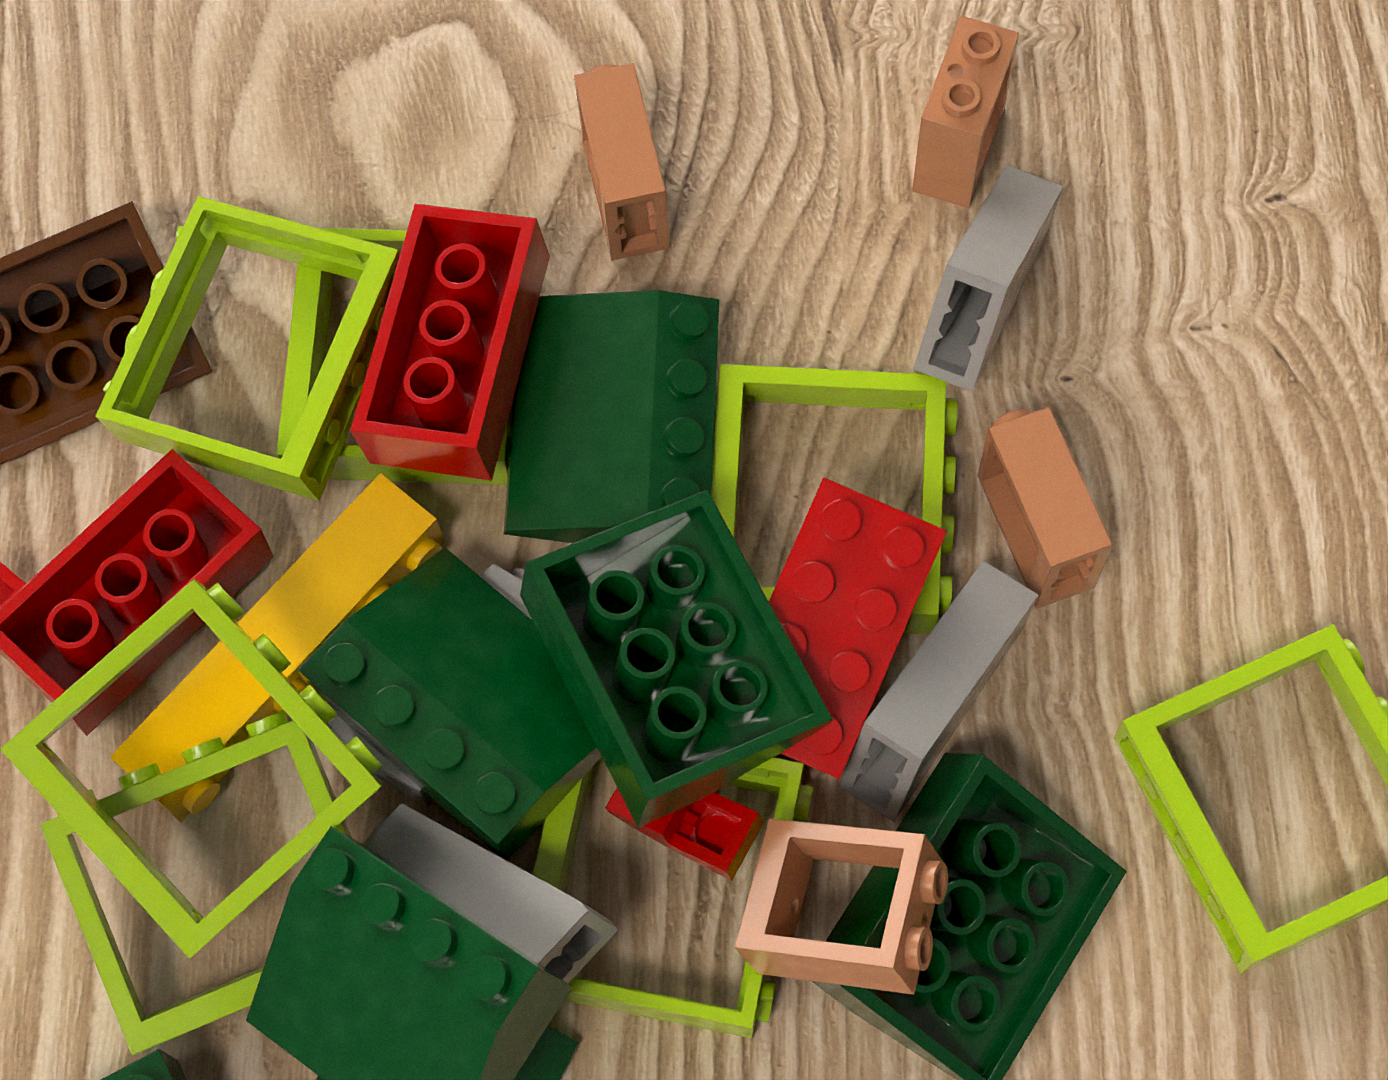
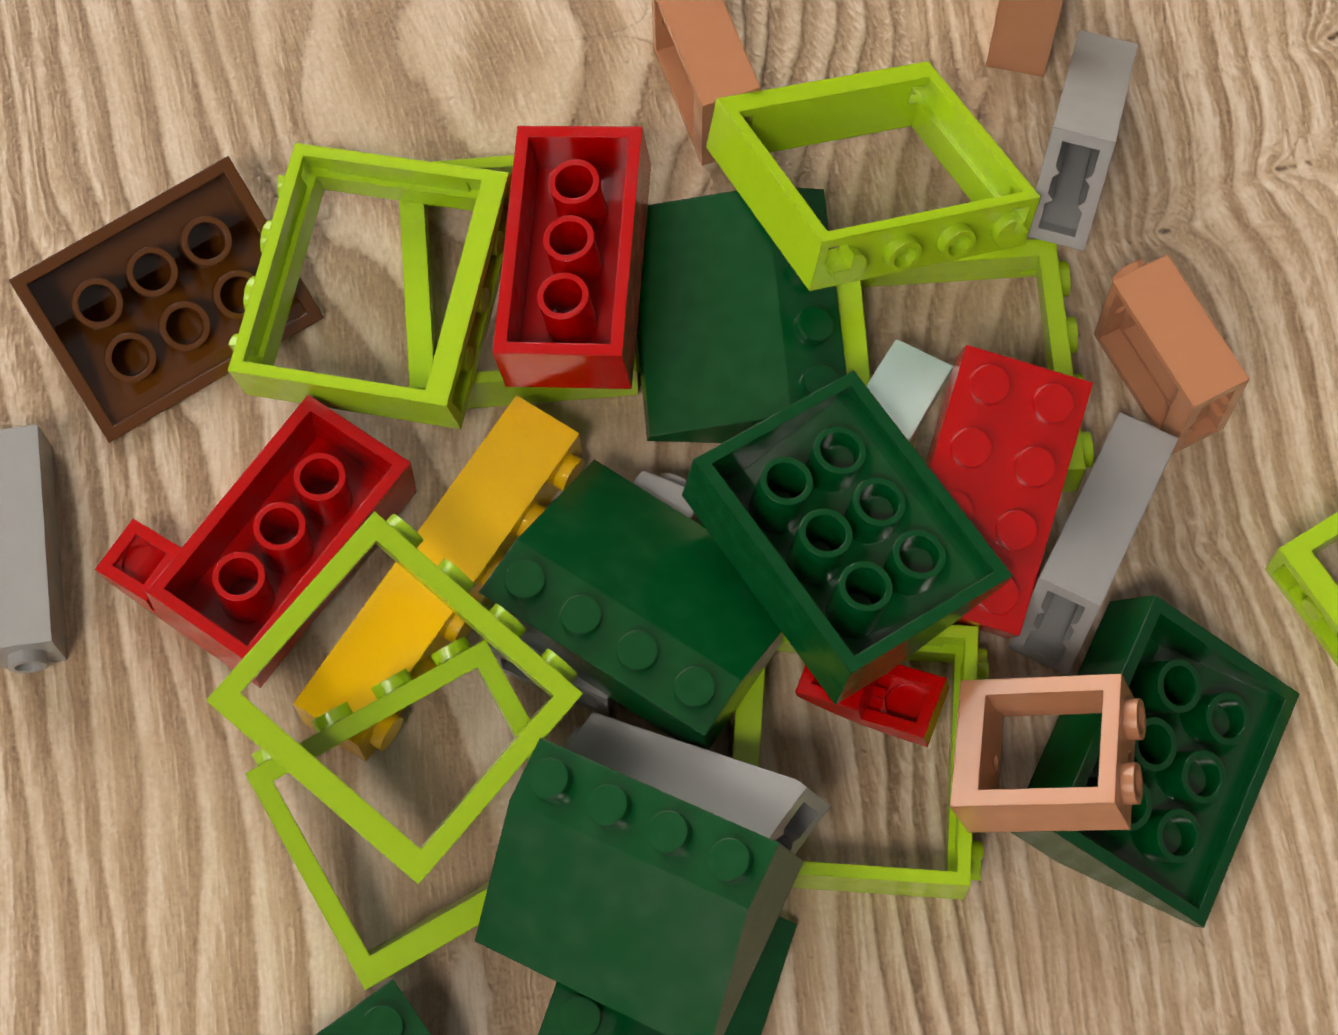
camera: 10 degrees left, 0 degrees up
(766, 220) = (858, 106): none -> lime window
(766, 514) = (908, 385): none -> light aqua slope

